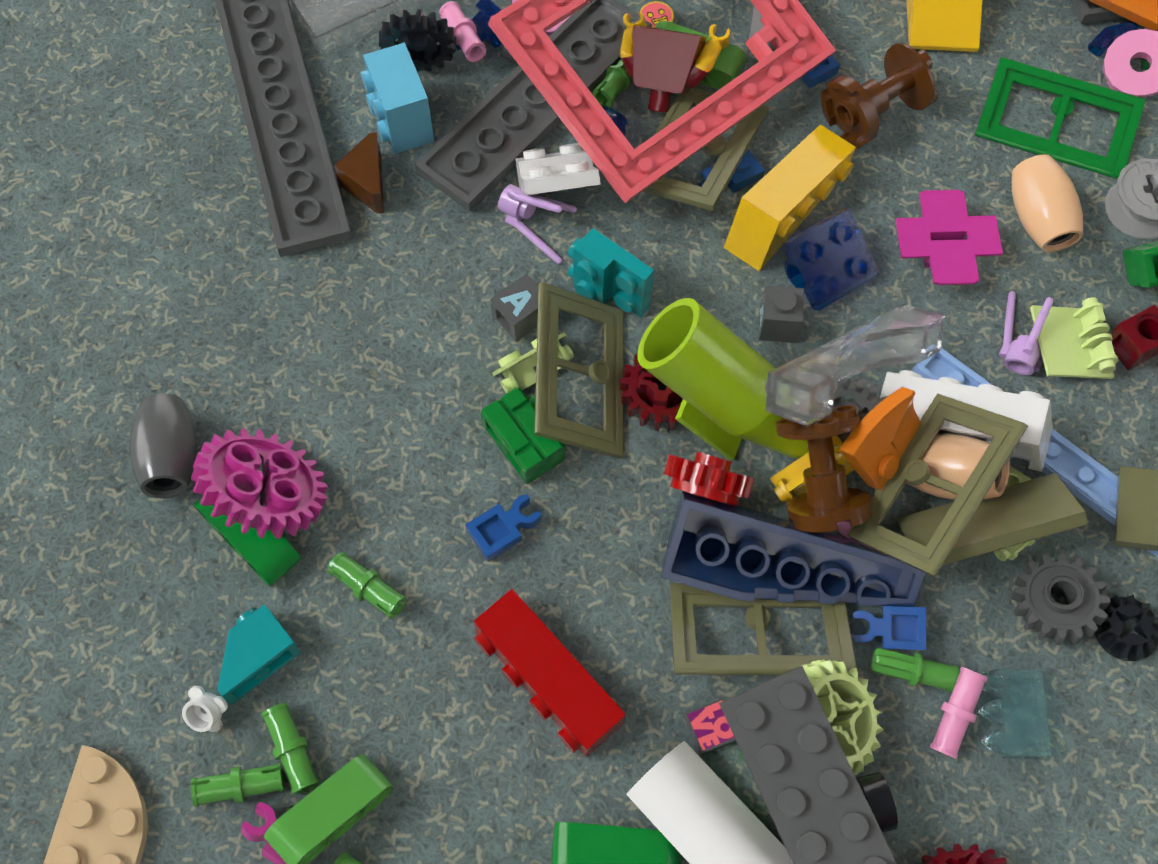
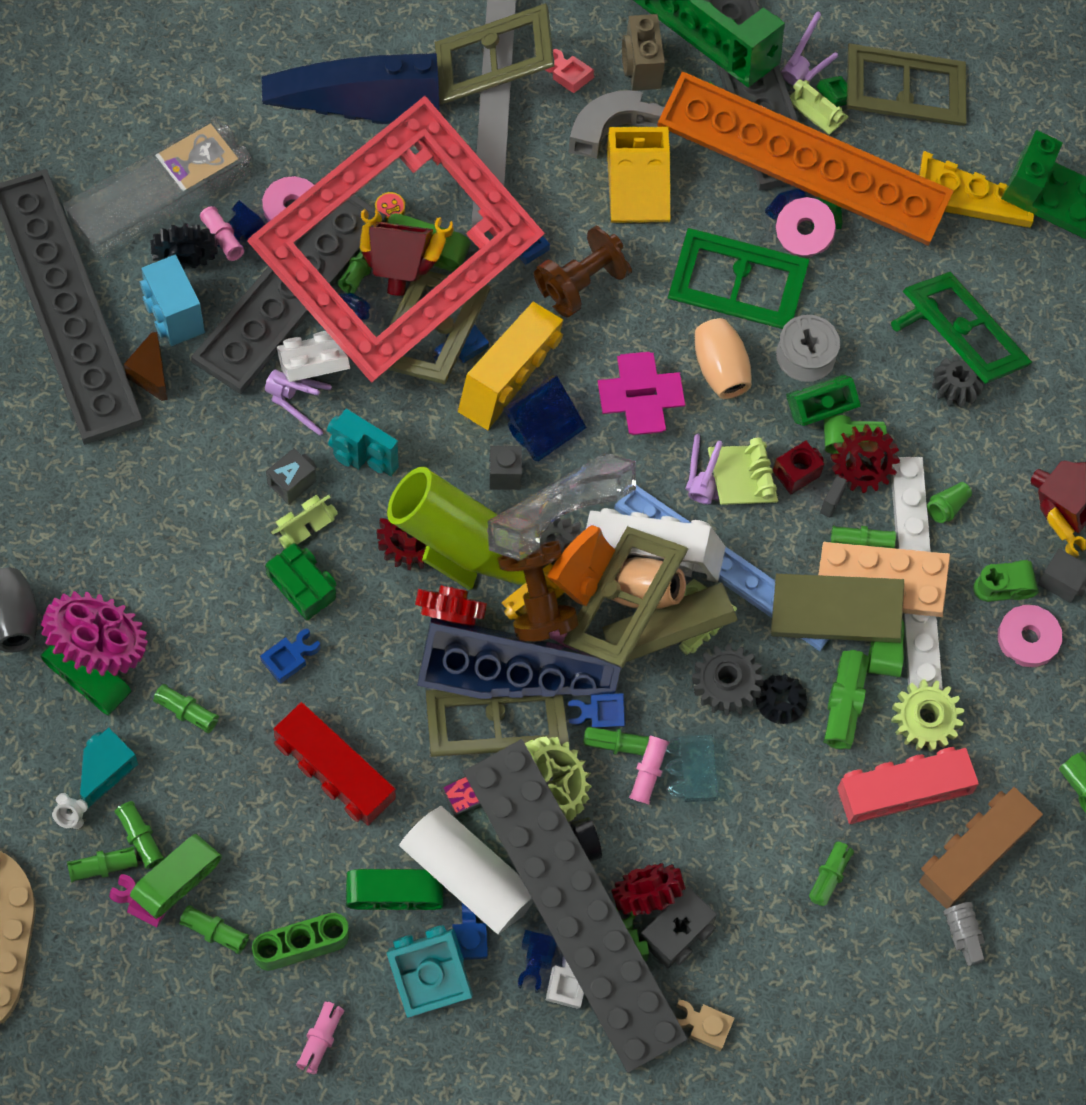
camera: 10 degrees left, 0 degrees up
(606, 372) = (361, 525): olive door -> none

